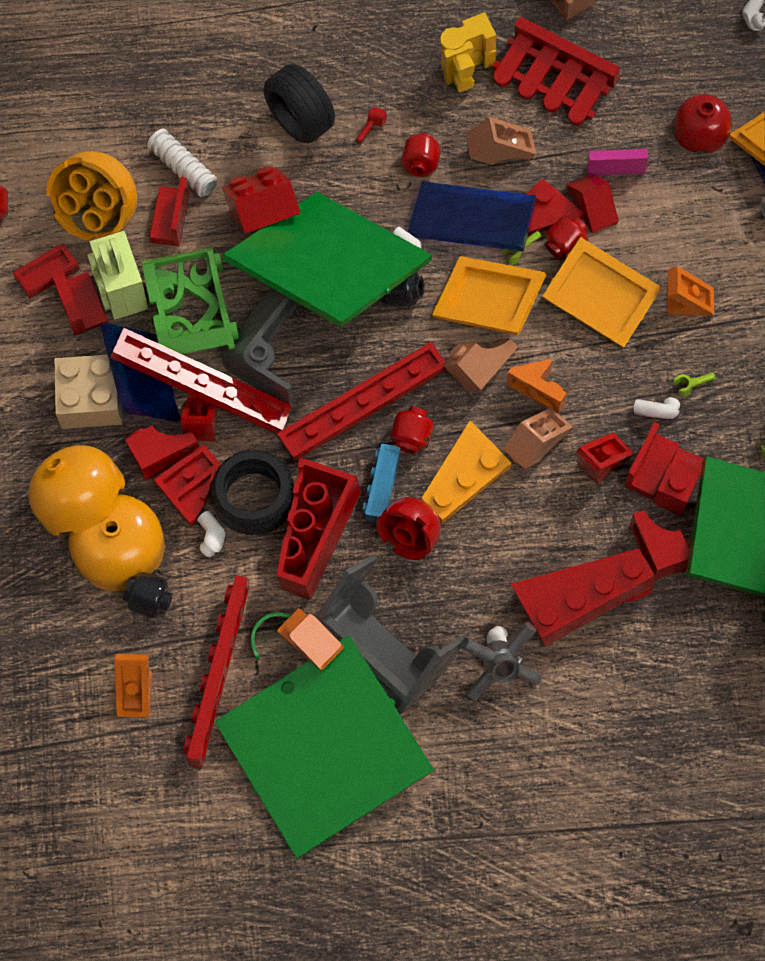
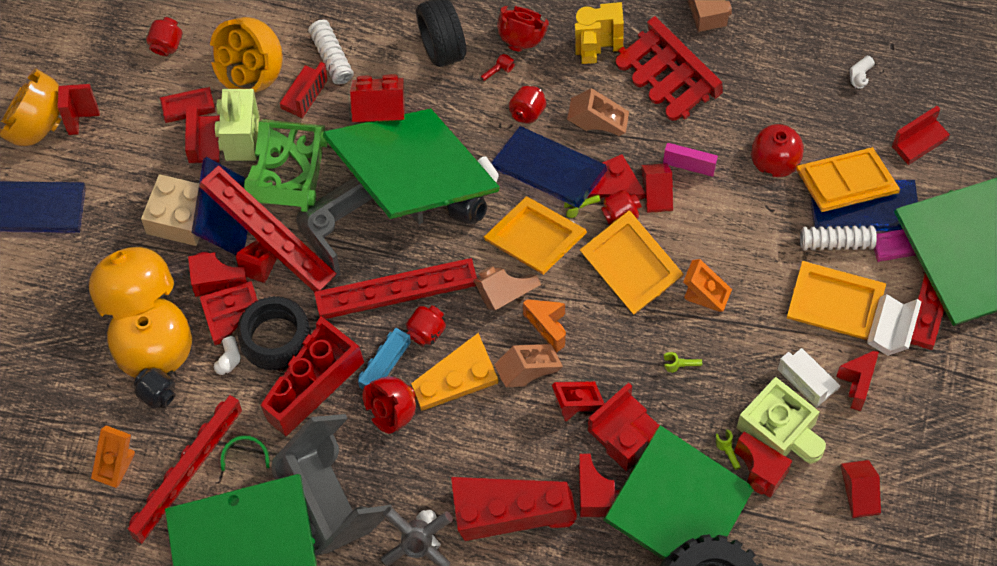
camera: 20 degrees right, 5 degrees down
(310, 638) = (266, 467): orange slope -> none
(381, 73) = (521, 28): none -> red cylinder
(668, 410) = (639, 375): white arm -> none

